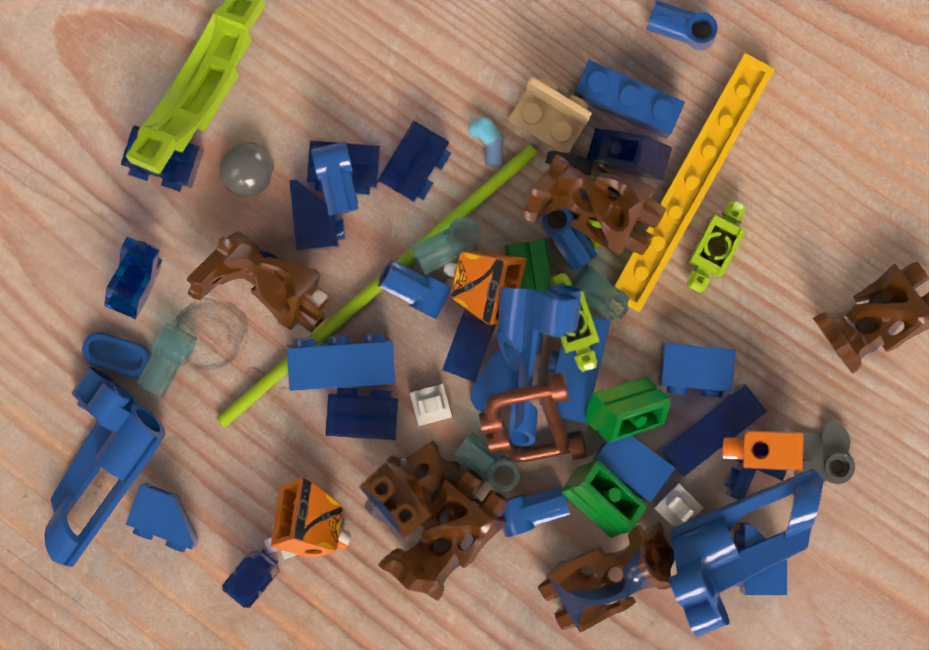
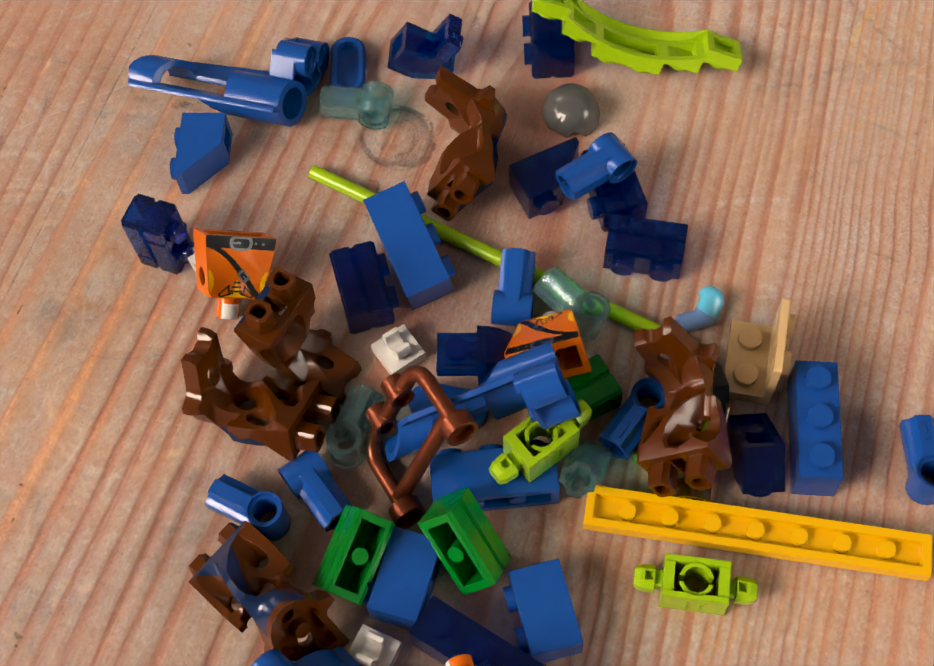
camera: 70 degrees right, 25 degrees down
(526, 571) = (246, 503): none -> blue piece

